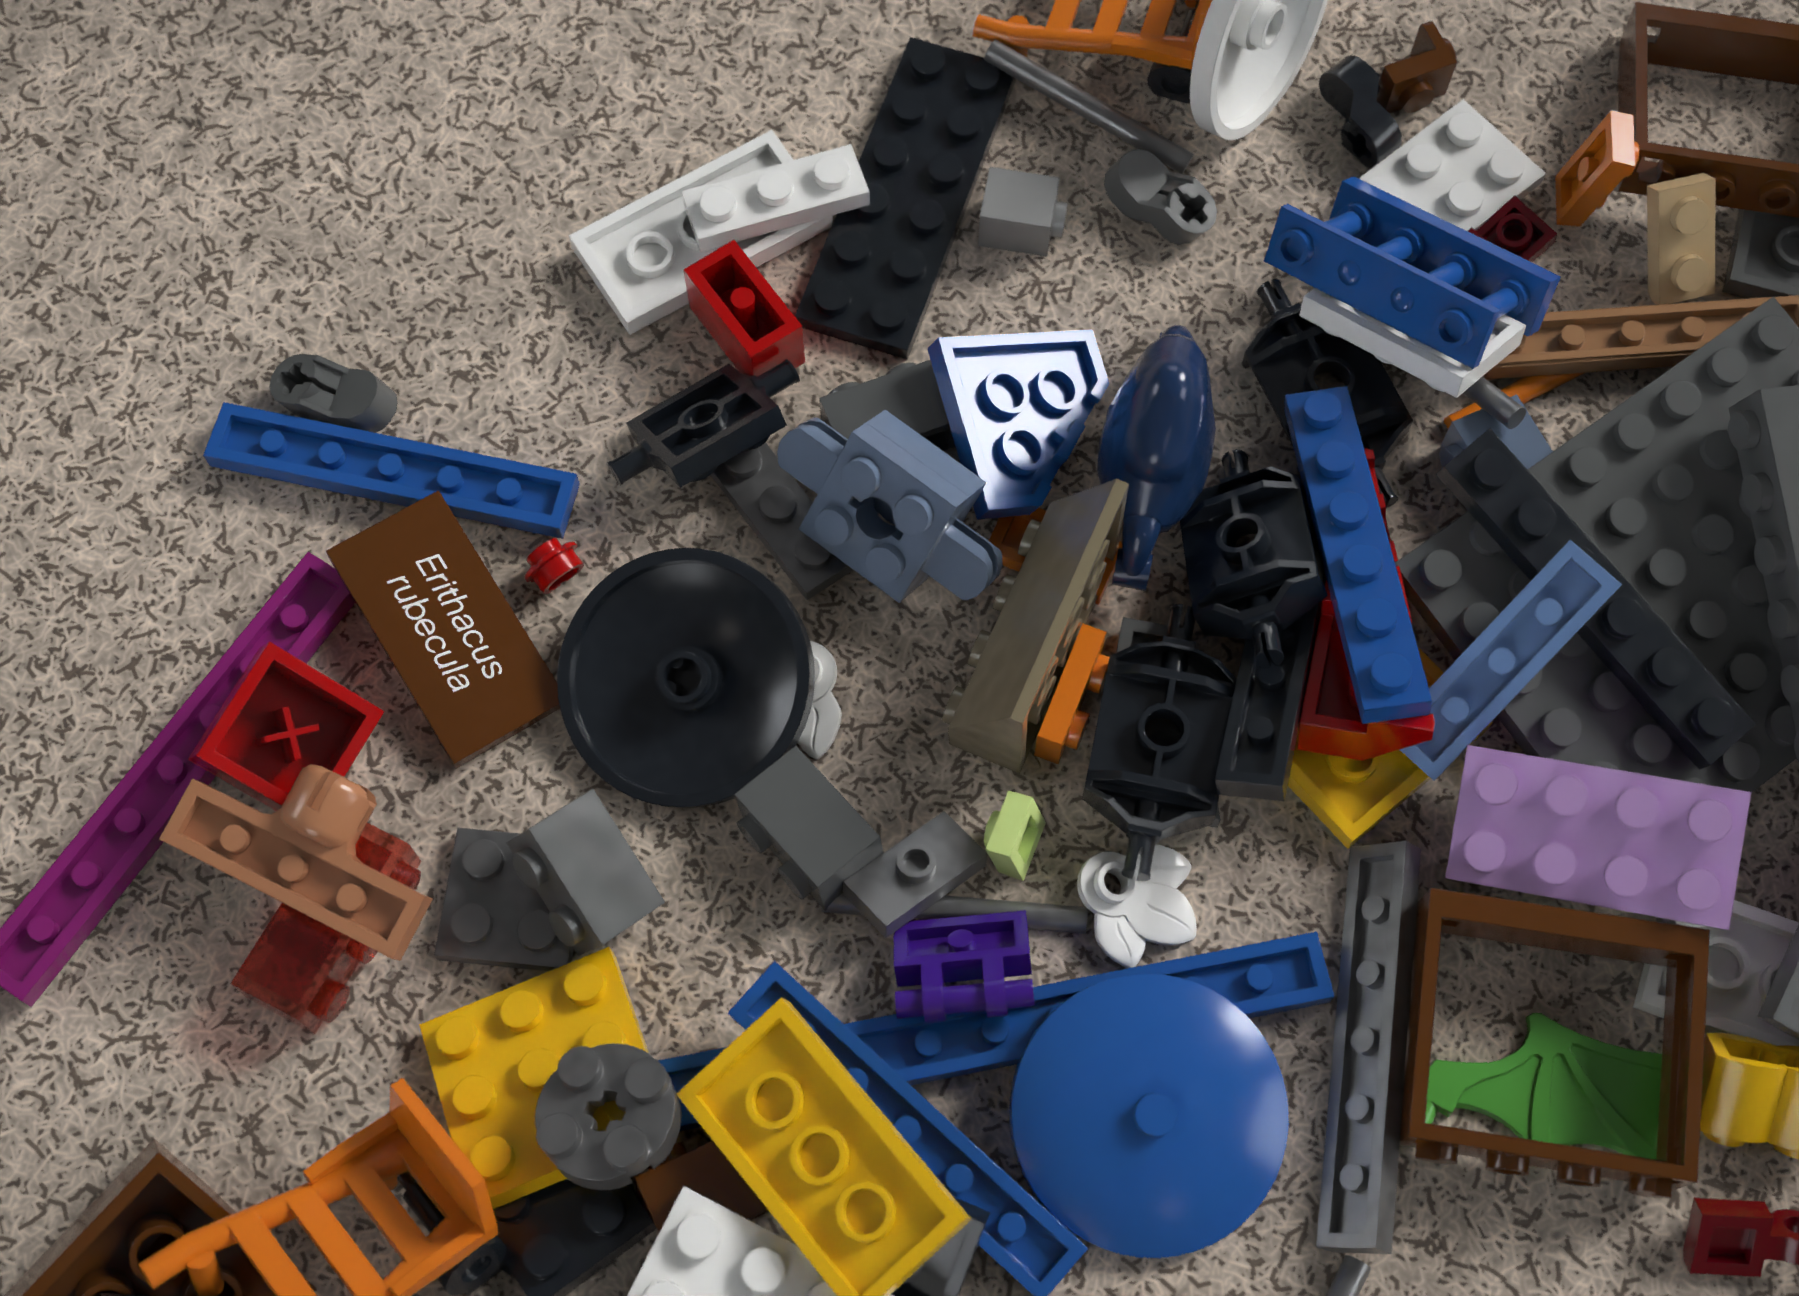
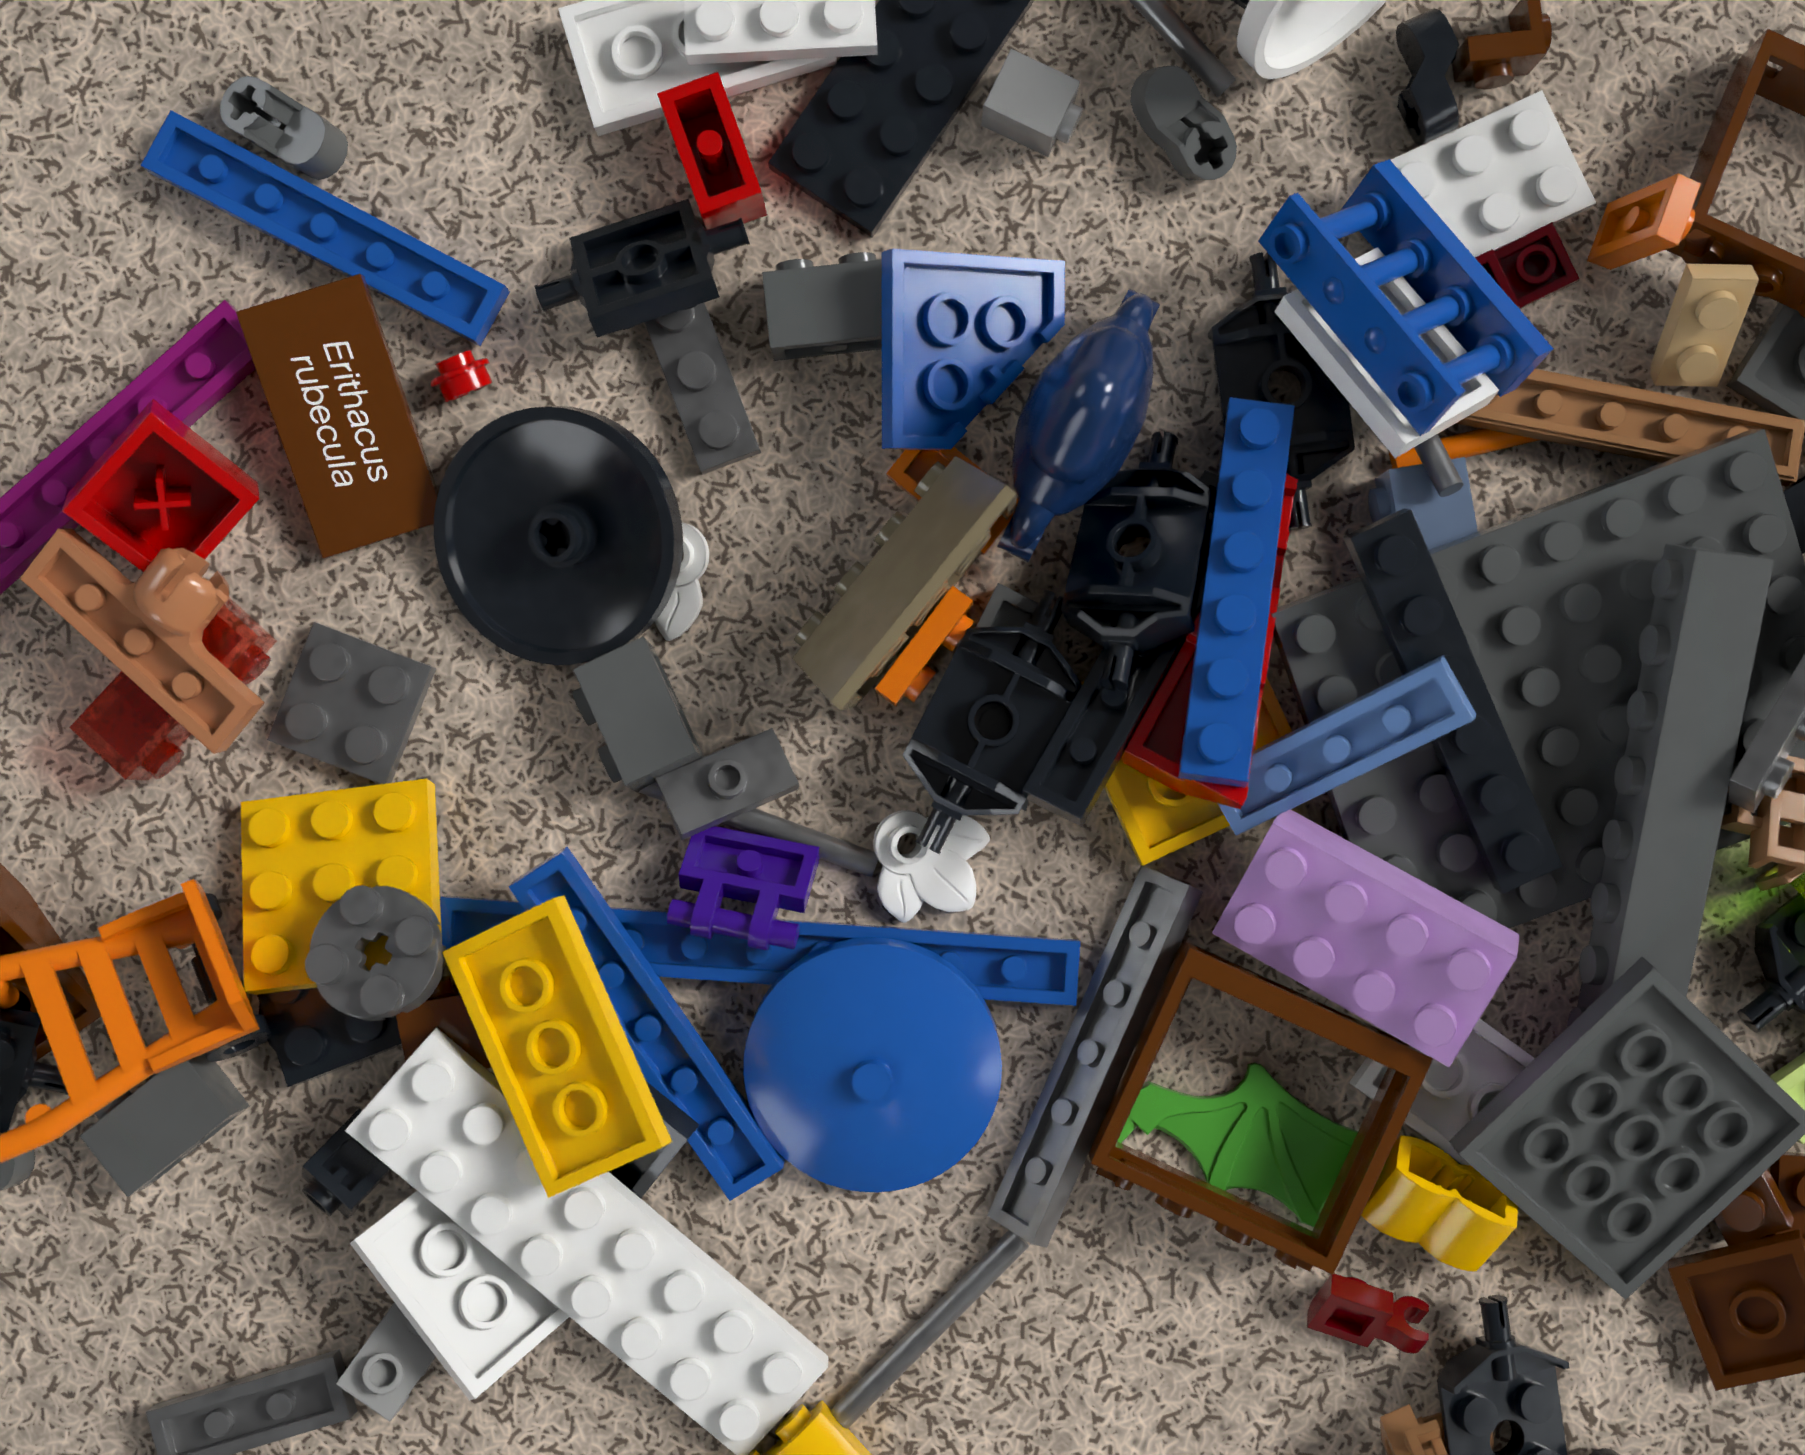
camera: 15 degrees right, 20 degrees up
(584, 873) = (414, 709): dark grey brick -> none
(911, 485) = (798, 414): sand blue brick -> none
(1014, 834) = (828, 772): yellowish green plate -> none

